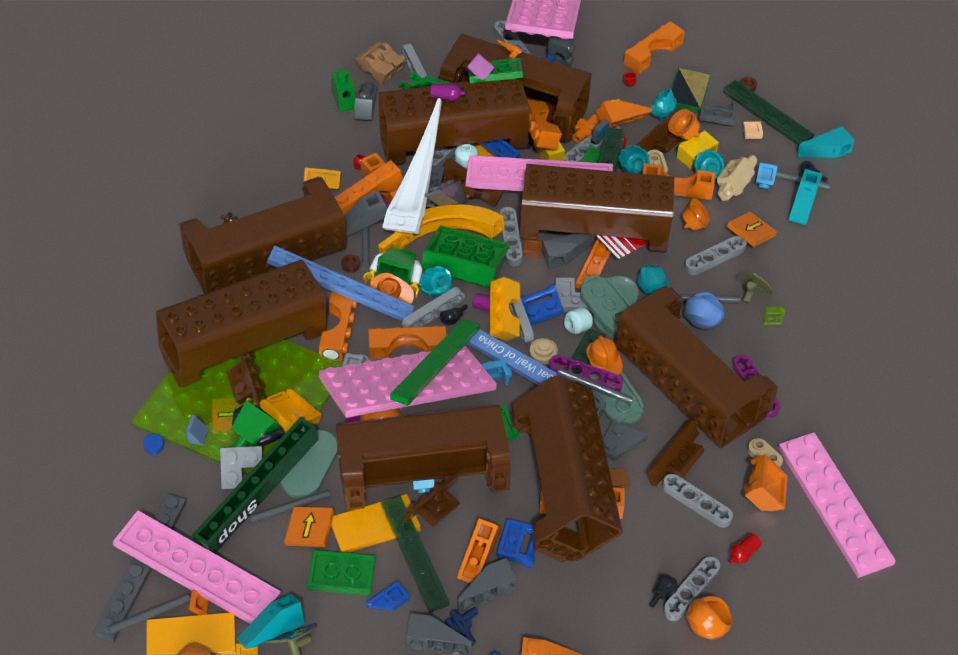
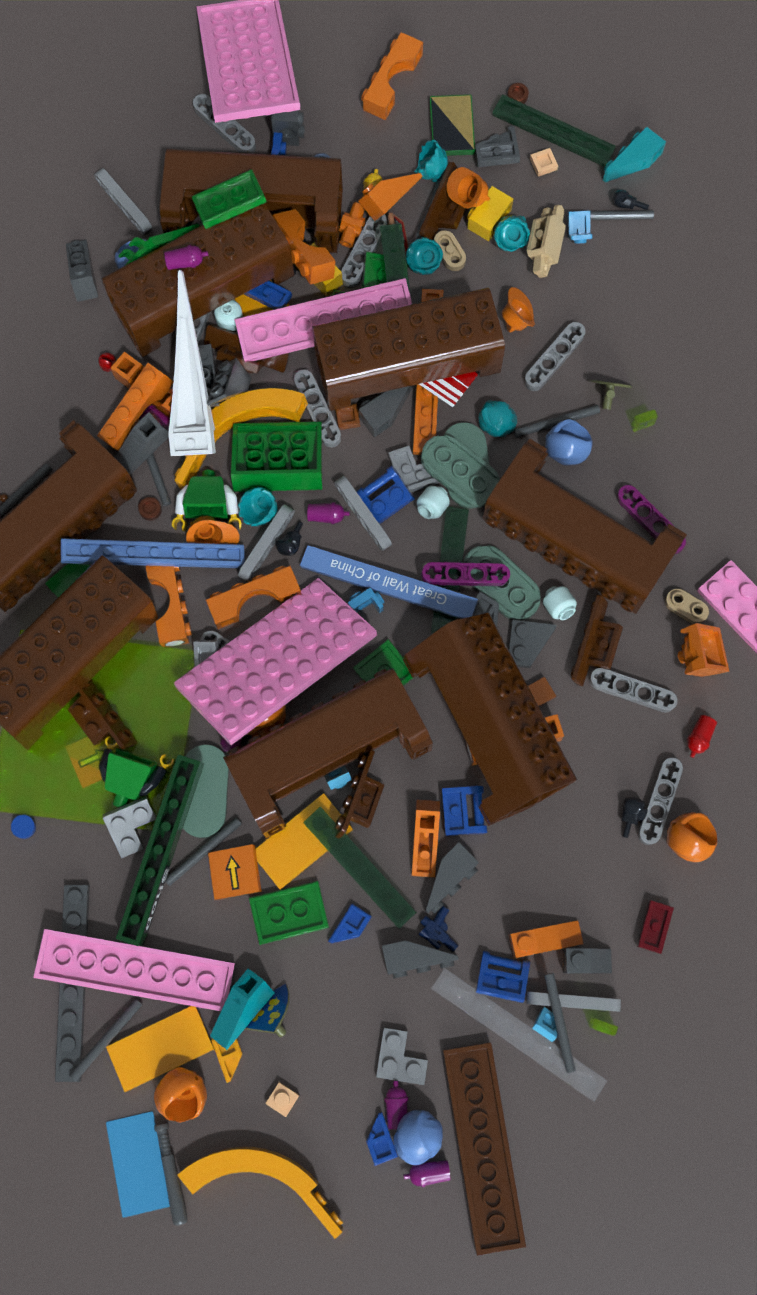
camera: 15 degrees left, 25 degrees up
(196, 431) = (66, 799): sand blue slope -> none
(198, 604) = (153, 1009): orange slope -> none
(288, 408) = (157, 736): light orange container -> none
(331, 177) = (73, 402): light orange plate -> none
(341, 83) = (47, 263): green torso -> none
(381, 62) = (67, 205): medium nougat hips -> none
(434, 362) = (299, 628): green tile -> none
(480, 66) = (211, 204): panel -> none
(502, 322) = (349, 536): light orange arch -> none
(515, 51) = (241, 158): orange bar -> none
(542, 350) = (407, 556): tan plate -> none
(595, 386) = (480, 587): dark grey bar -> none
(599, 130) = (372, 227): dark grey tile -> none
(604, 355) = (478, 542): orange piece -> none
(629, 78) = (379, 132): red hinge -> none
(657, 418) = (559, 602): none -> light aqua head
(696, 186) = (505, 268): orange arch -> none
(751, 229) = (585, 307): orange tile -> none
(805, 197) = (632, 242): teal slope -> none

